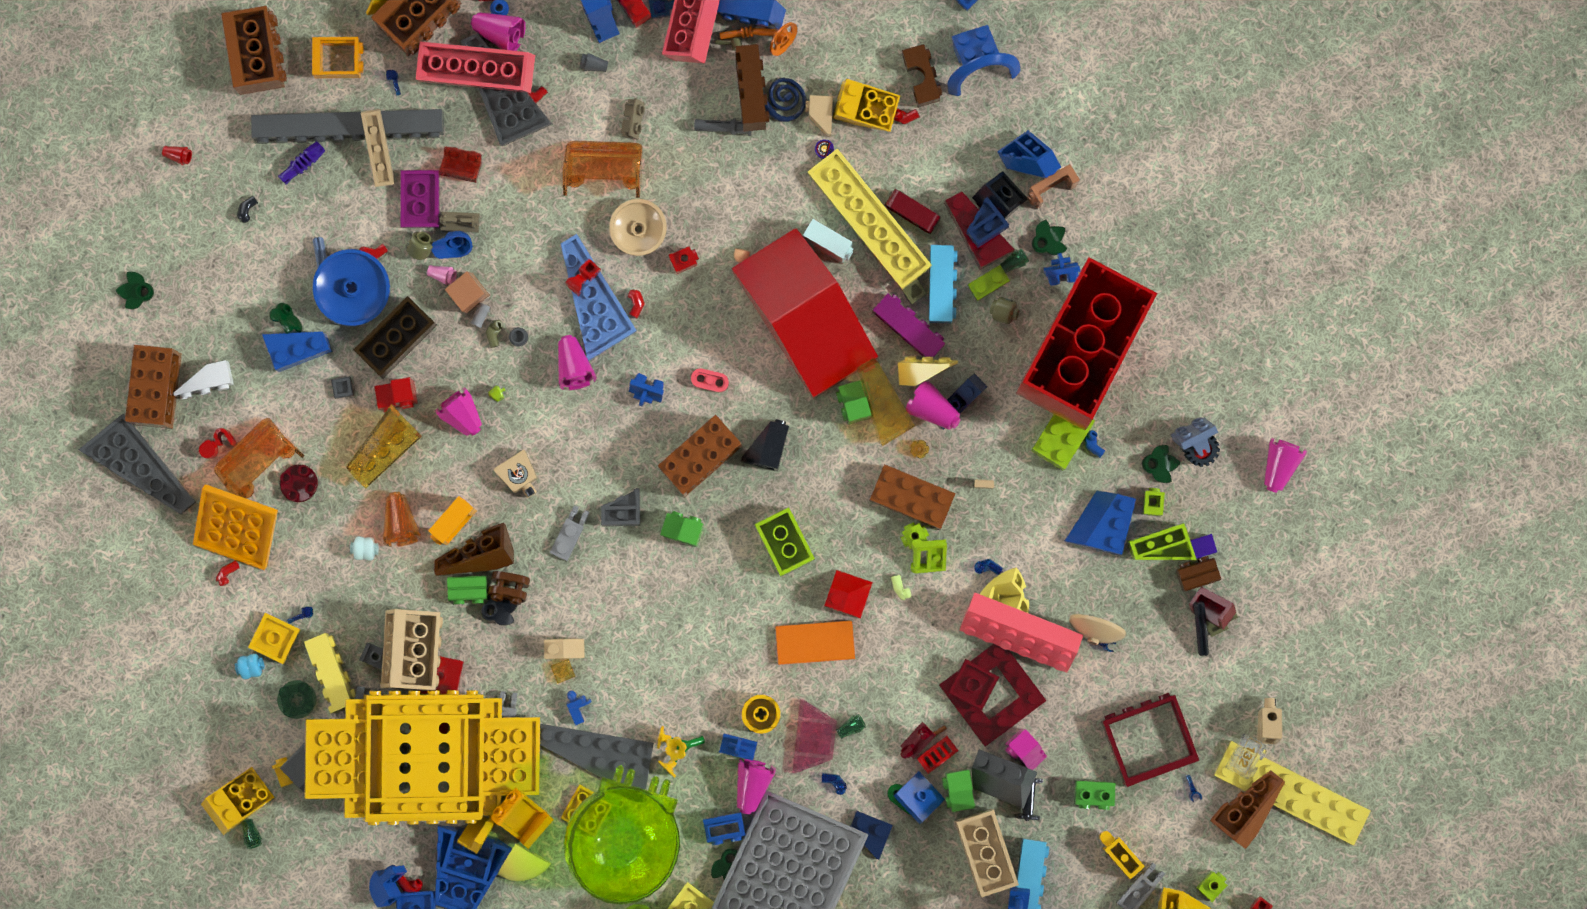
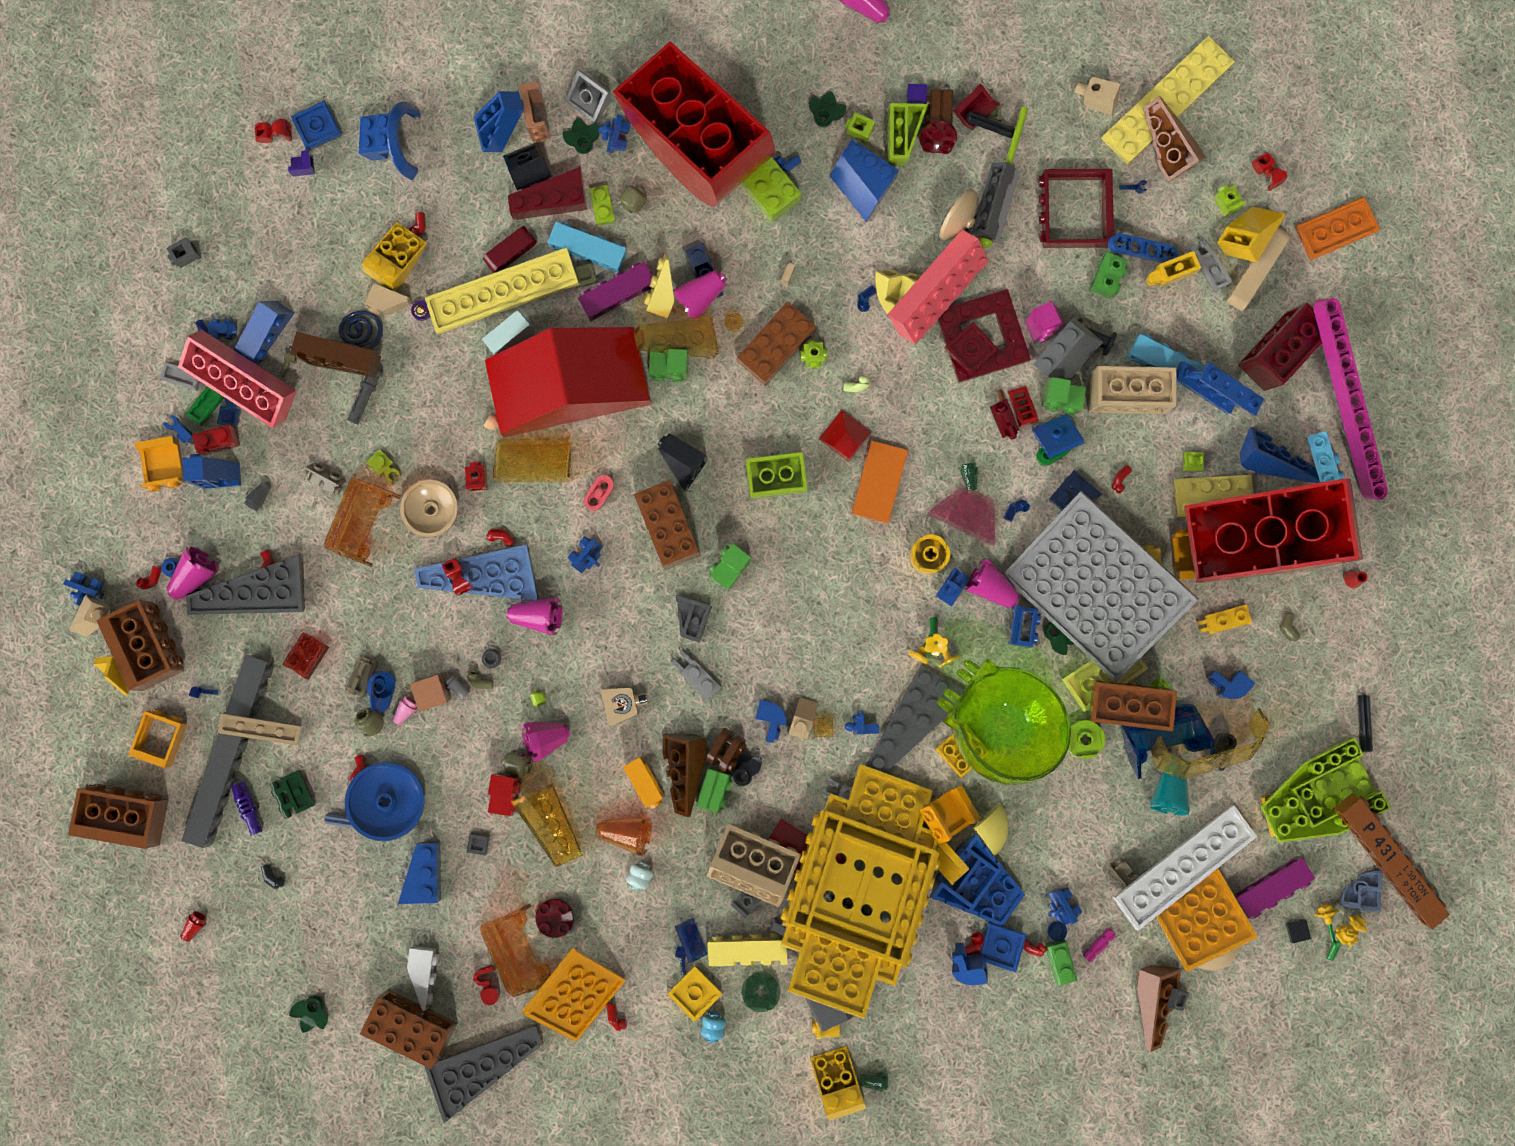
camera: 70 degrees left, 0 degrees up
(284, 314) = (388, 875): dark green plate -> none
(321, 617) = (691, 940): none -> clear blue plate
(332, 203) = (297, 792): none -> dark green plate
(395, 337) = (448, 776): dark brown brick -> none
(420, 199) = (324, 706): magenta plate -> none
(429, 396) = (517, 763): none -> olive head
(475, 67) = (216, 607): coral brick -> none
(557, 620) = (774, 714): none -> blue brick
(665, 167) = (382, 464): none -> lime plate
(718, 308) = (533, 461): none -> clear yellow windscreen
(780, 36) = (298, 312): orange dish -> none
(900, 871) = (1119, 478): none -> red arm
(918, 59) = (370, 193): reddish brown arch -> none
(935, 556) = (839, 341): lime plate -> none
(986, 224) = (546, 181): dark blue wing -> none
(1015, 261) = (591, 172): clear green cone -> none
(1087, 231) = (588, 96): none -> light grey slope
(1132, 817) = (1143, 245): none -> blue beam
(1136, 659) = (998, 193): none -> dark grey piece
(1169, 581) = (938, 137): none -> dark red dish
(1198, 441) = (817, 66): sand blue plate -> none
(1246, 756) = (1123, 125): clear brick -> none

